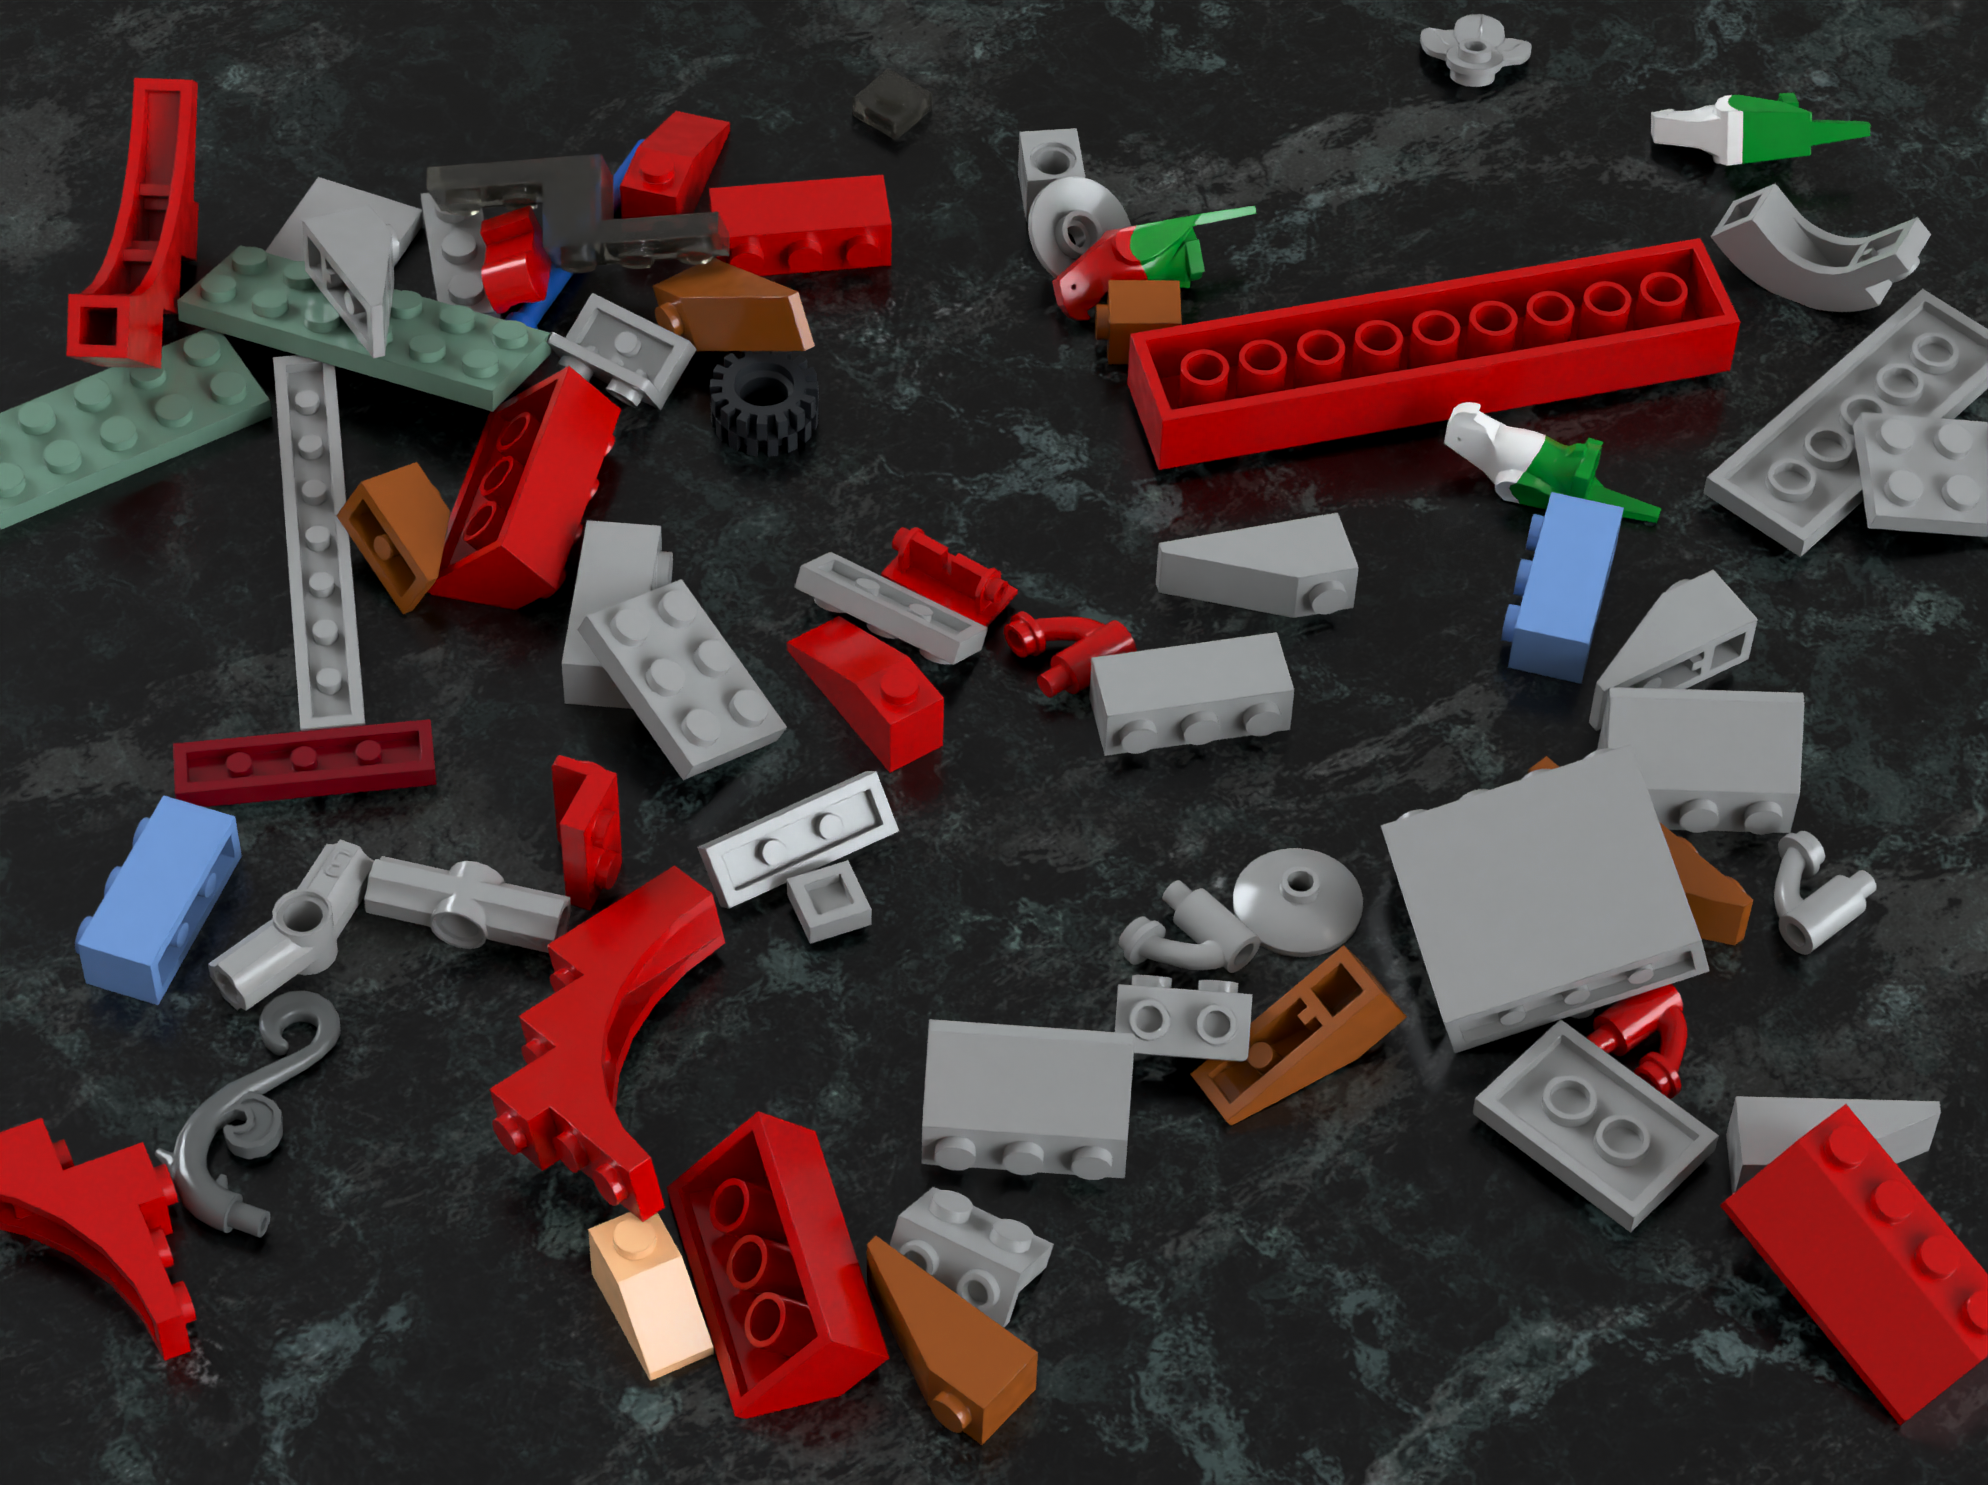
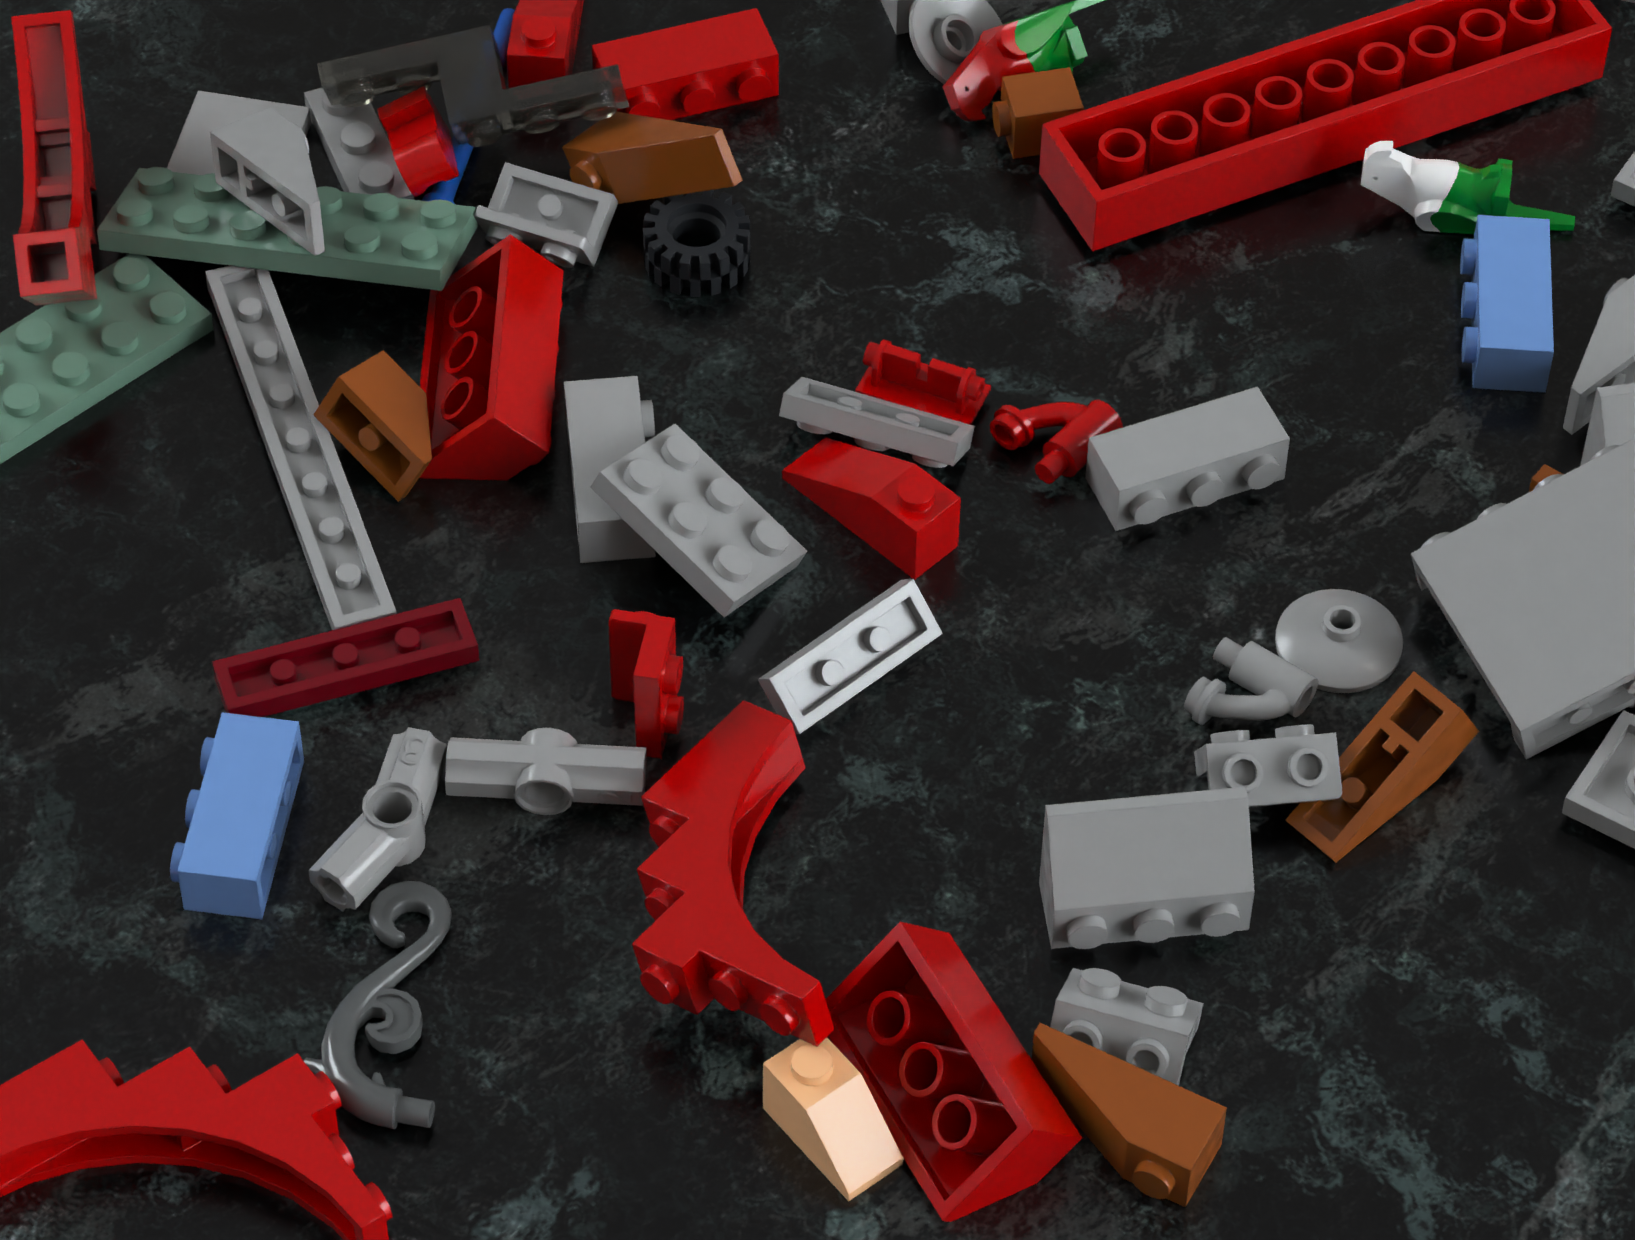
camera: 10 degrees left, 0 degrees up
(829, 901) = (896, 711): light grey plate -> none
(1268, 568) = (1226, 328): light grey slope -> none

